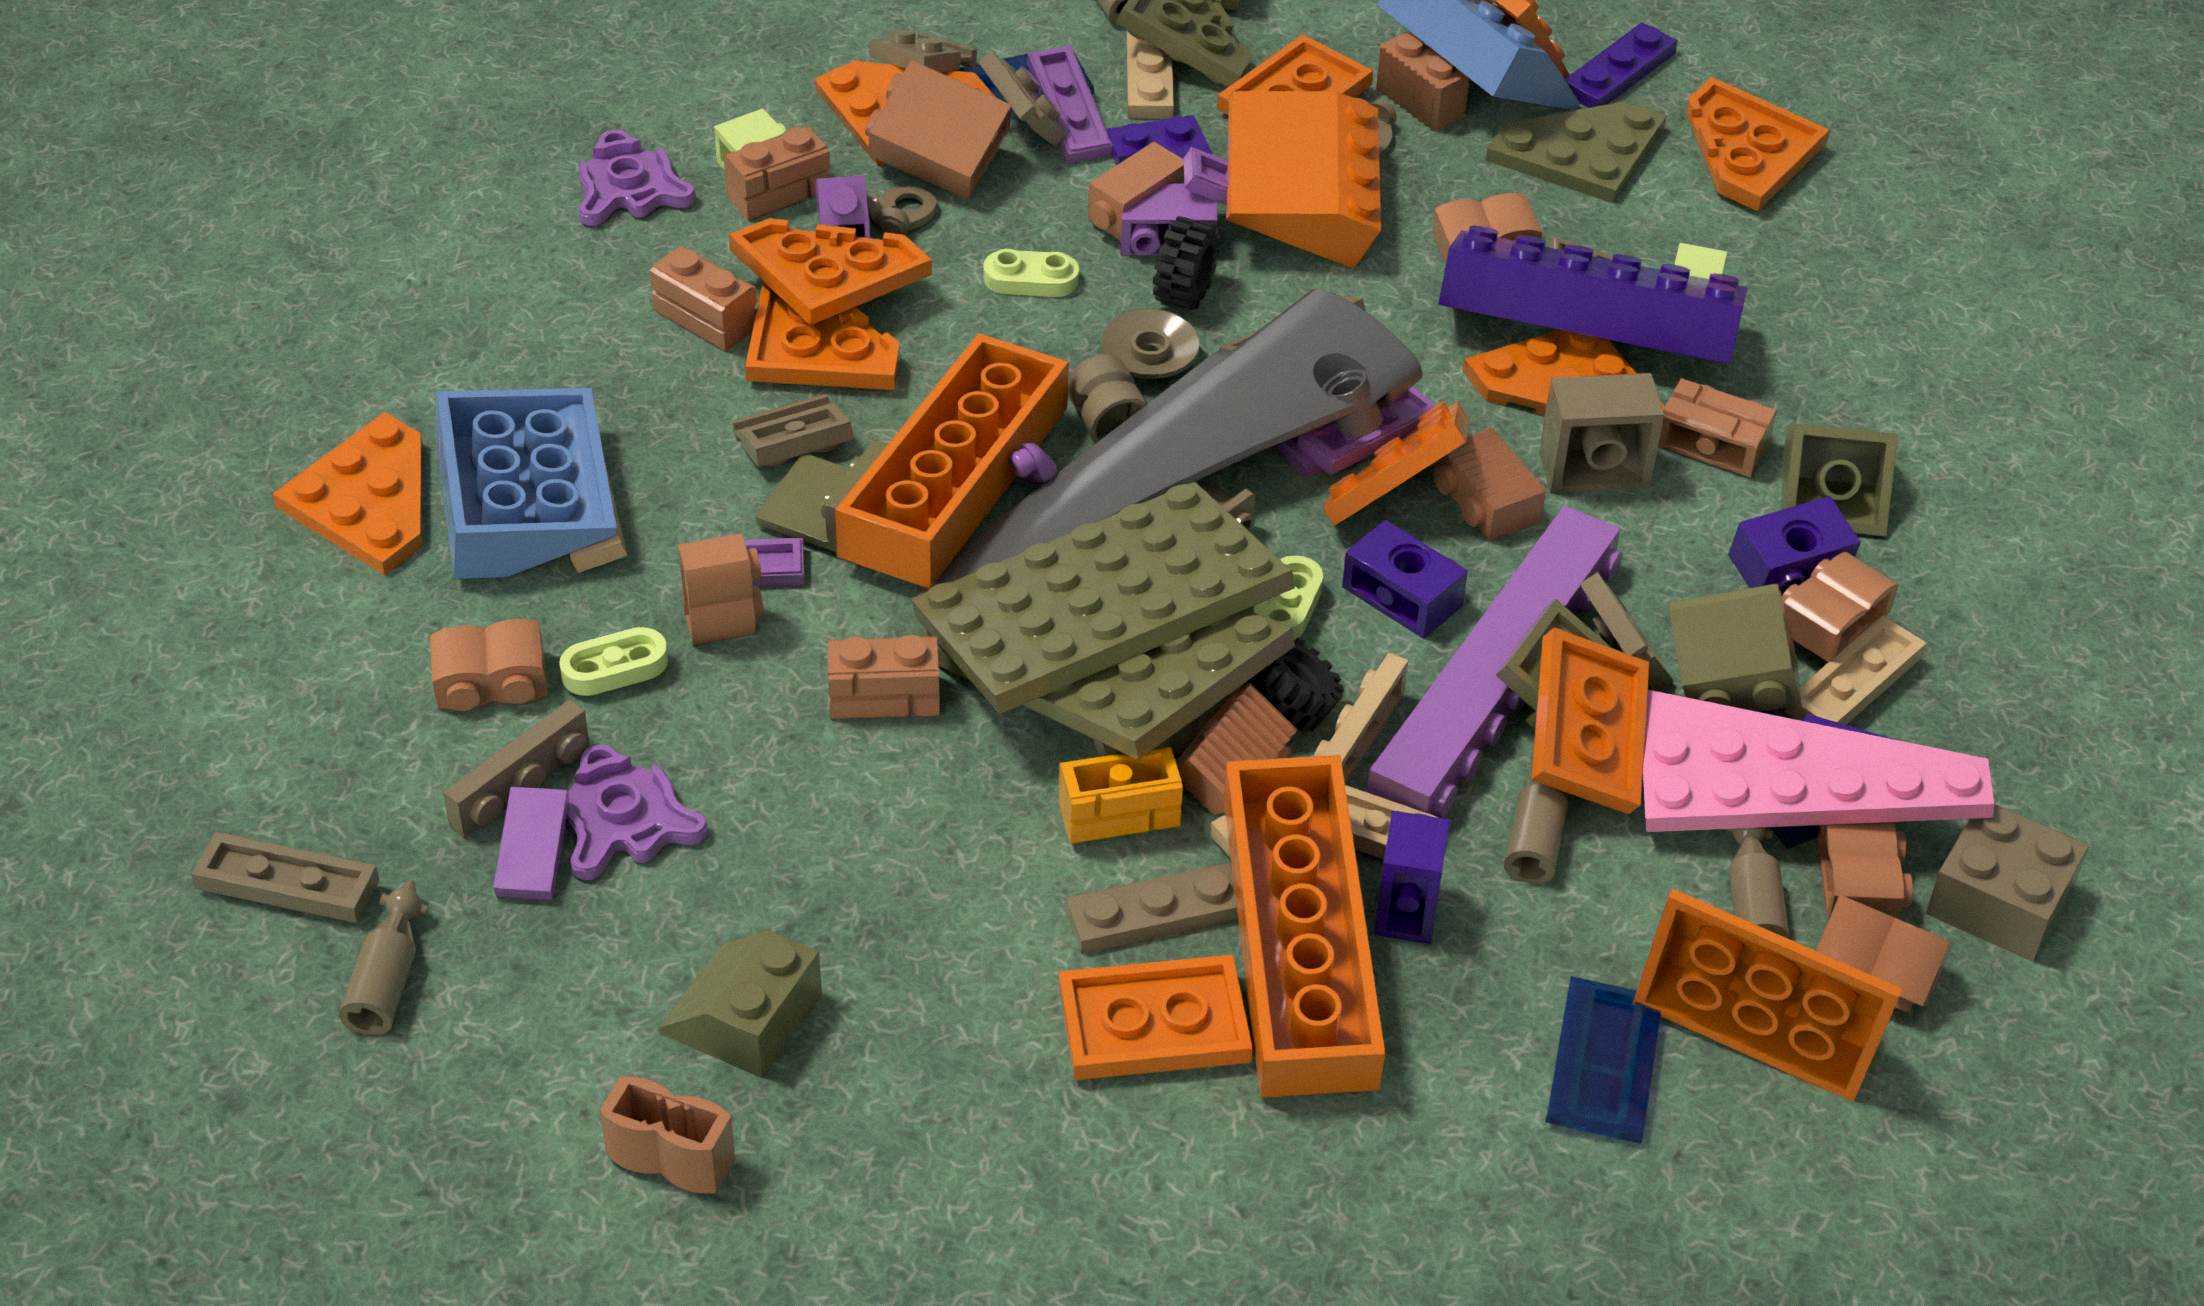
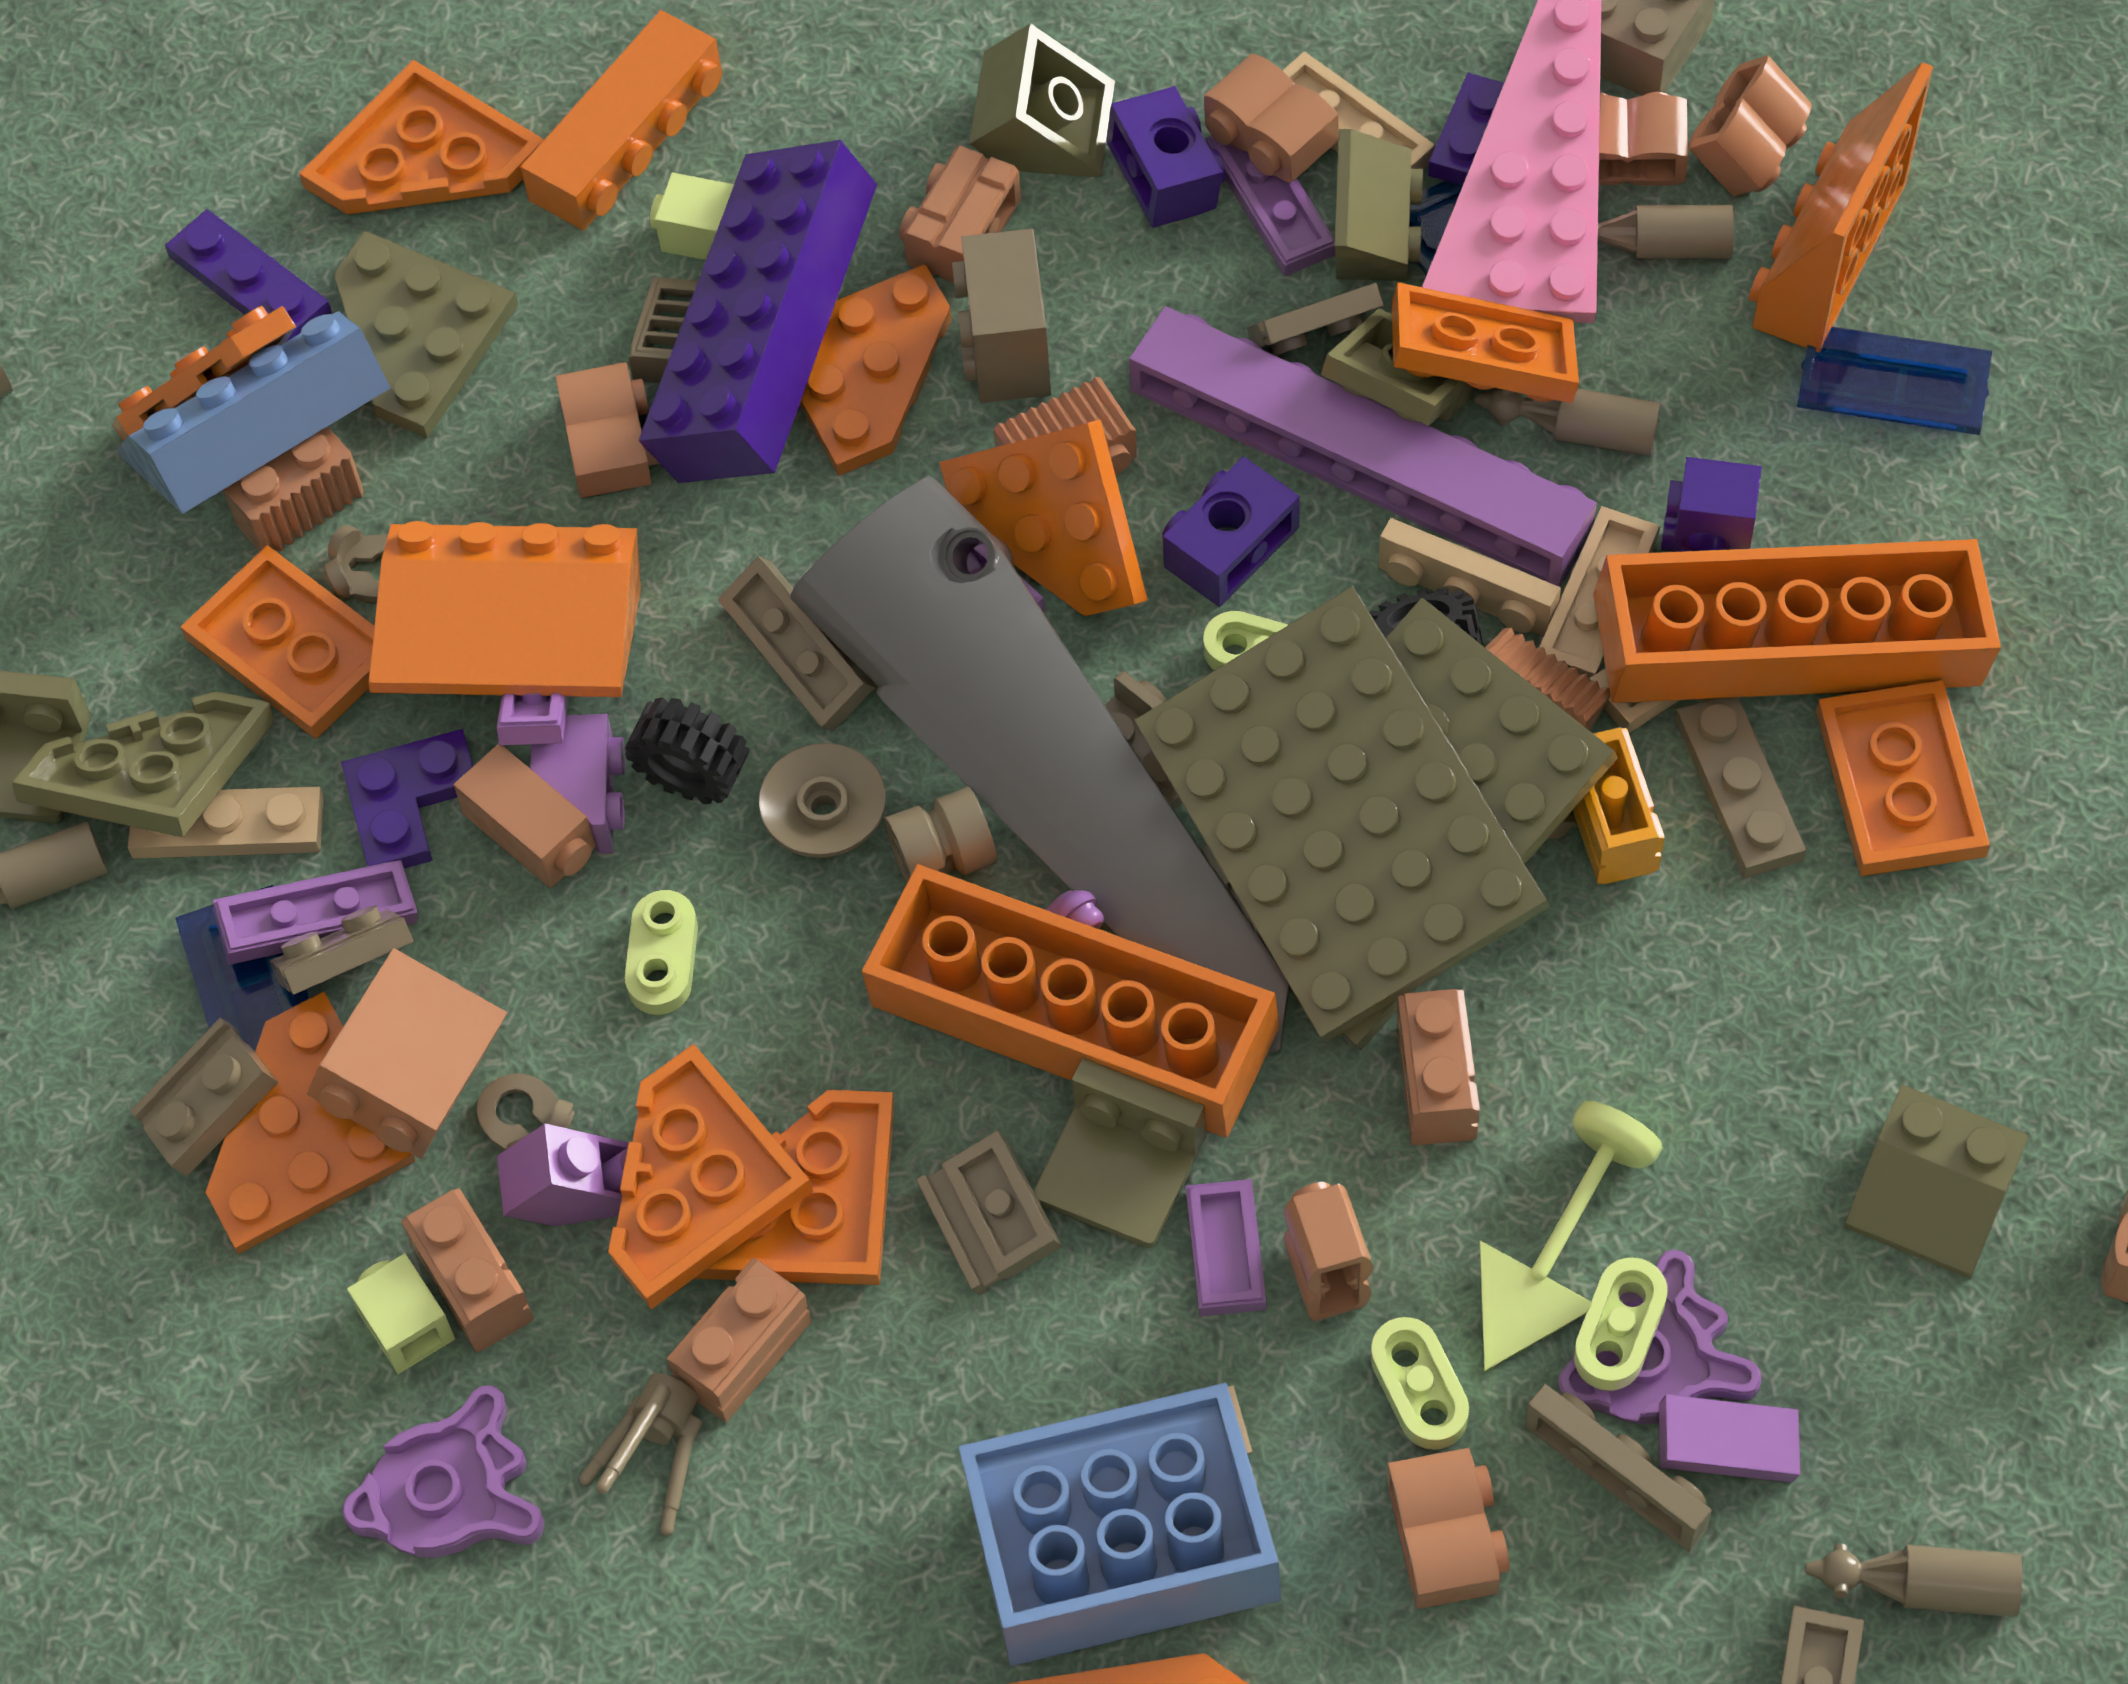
camera: 85 degrees left, 15 degrees up
(640, 768) = (1618, 1327): none -> yellowish green plate
(647, 251) = (656, 1415): none -> dark tan plant
(678, 730) = (1524, 1303): none -> yellowish green piece
(1790, 240) = (622, 120): none -> orange brick

